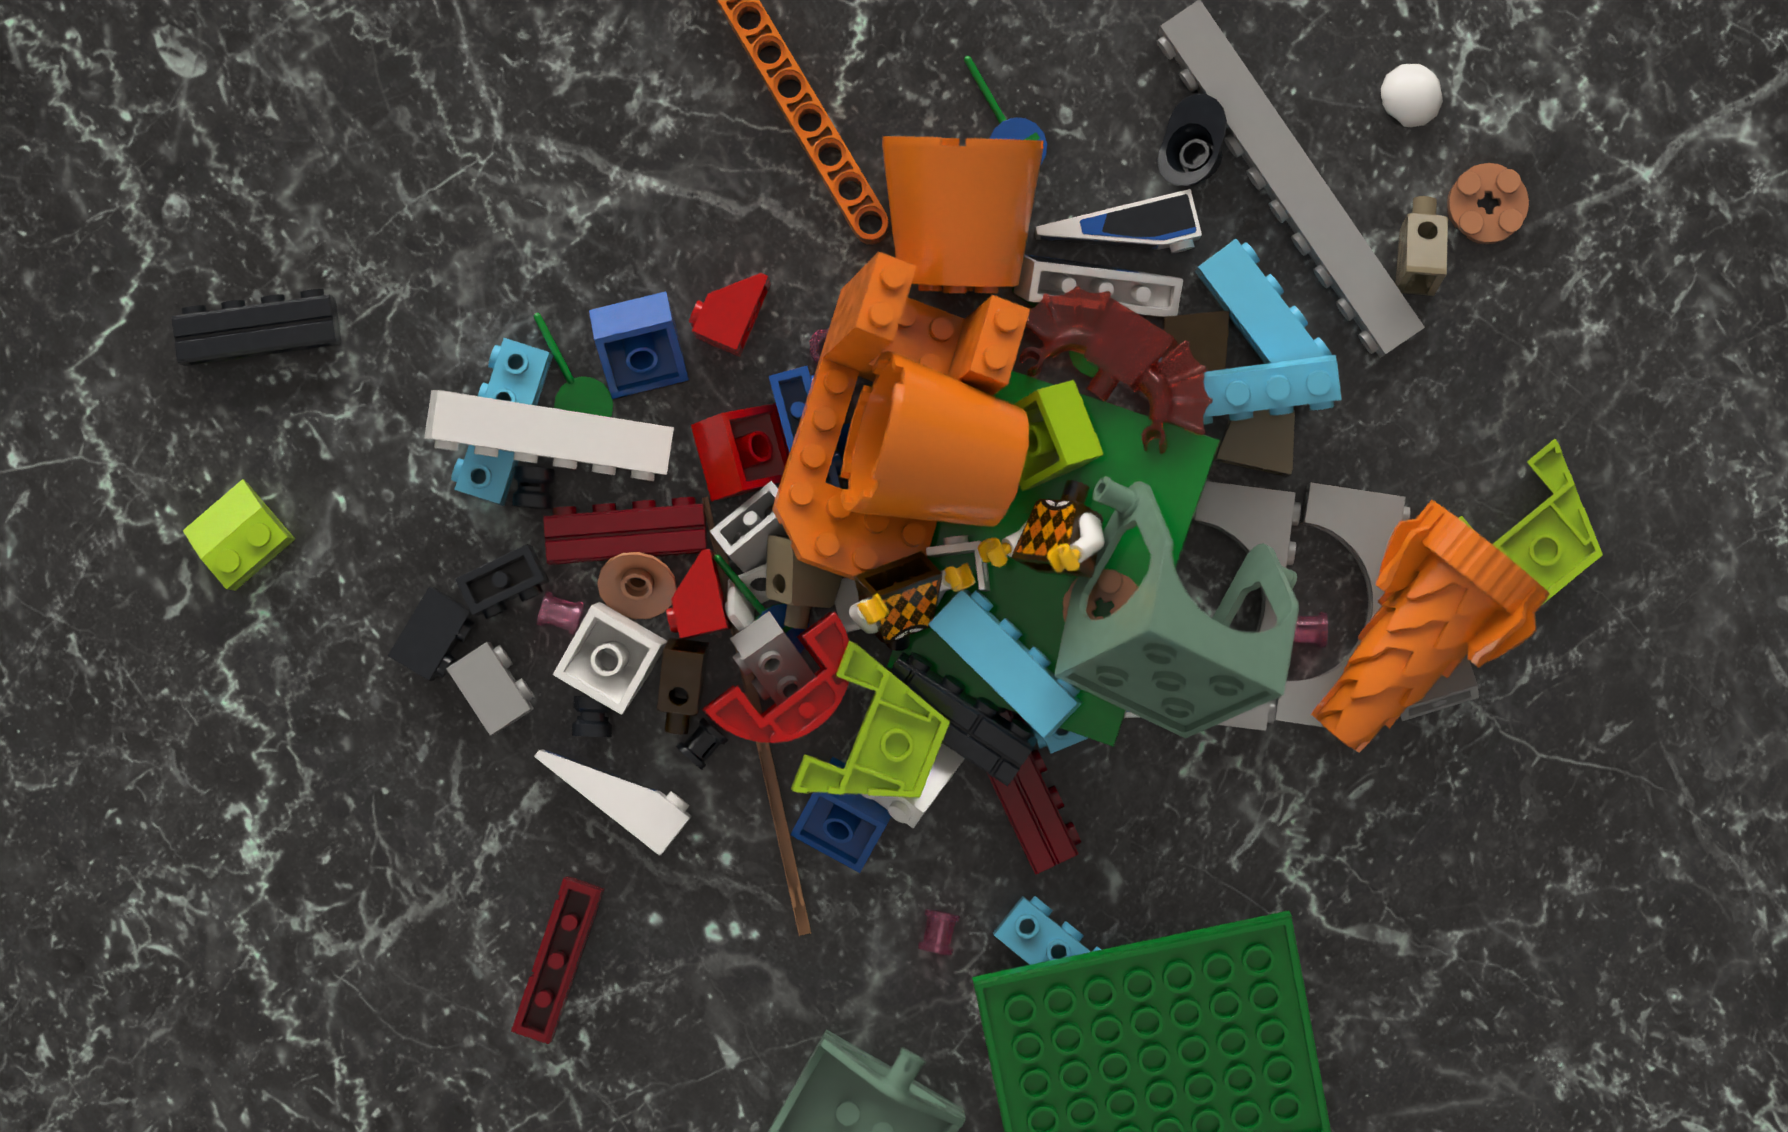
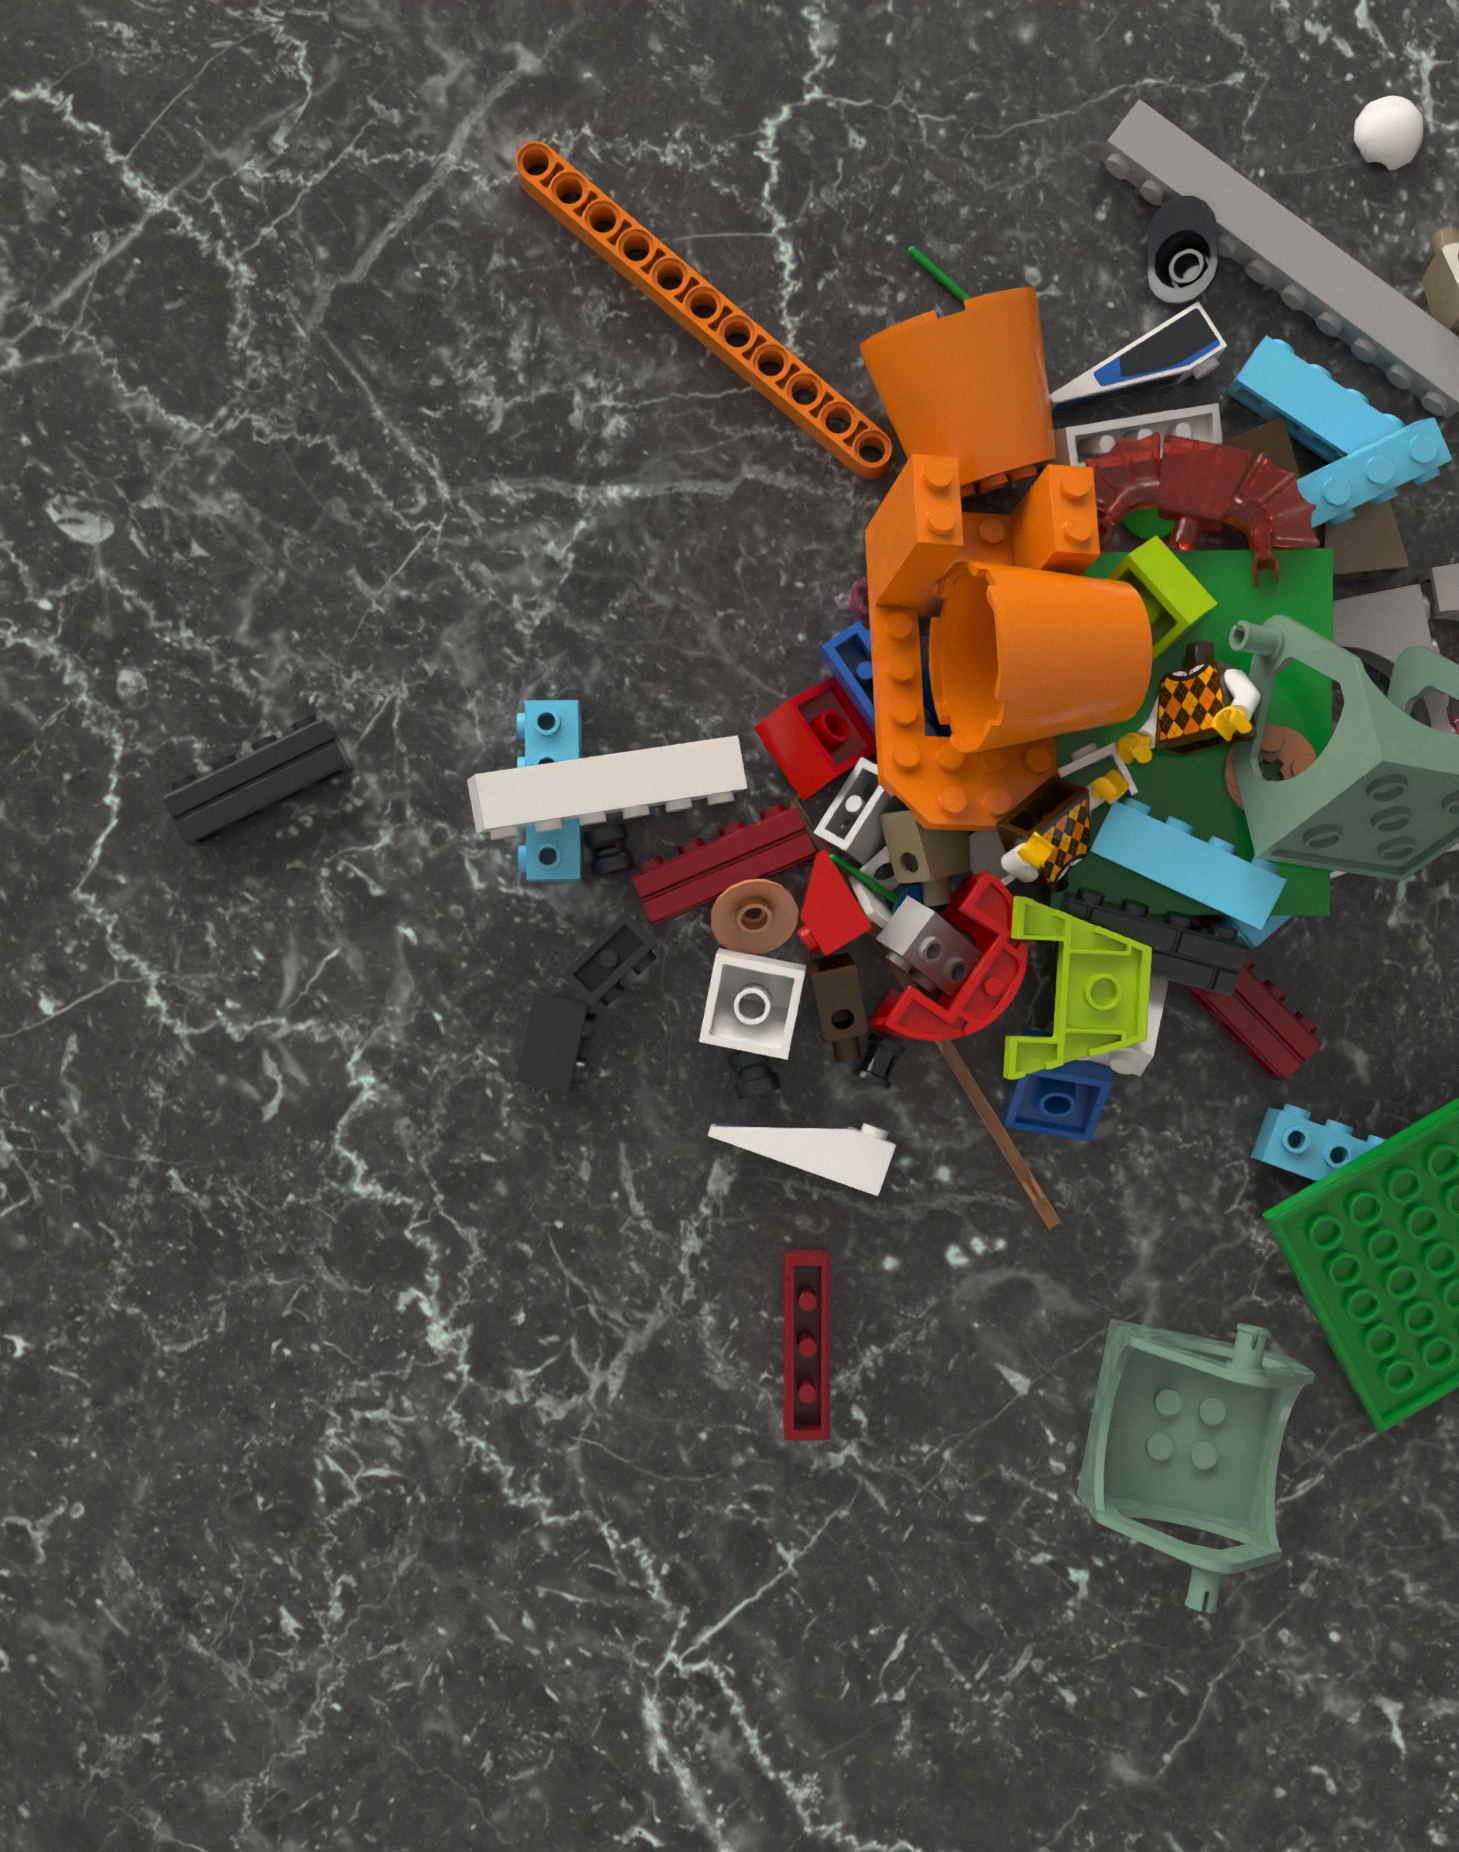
camera: 25 degrees left, 0 degrees up
(237, 536) = (312, 1007): lime slope -> none
(491, 687) = (637, 1077): light grey brick -> none
(560, 613) = (682, 973): clear pink bush -> none
(578, 393) = (622, 734): green piece -> none
(638, 345) = (669, 662): blue slope -> none
(730, 313) = (755, 595): red slope -> none
(938, 932) = (1197, 1176): clear pink bush -> none

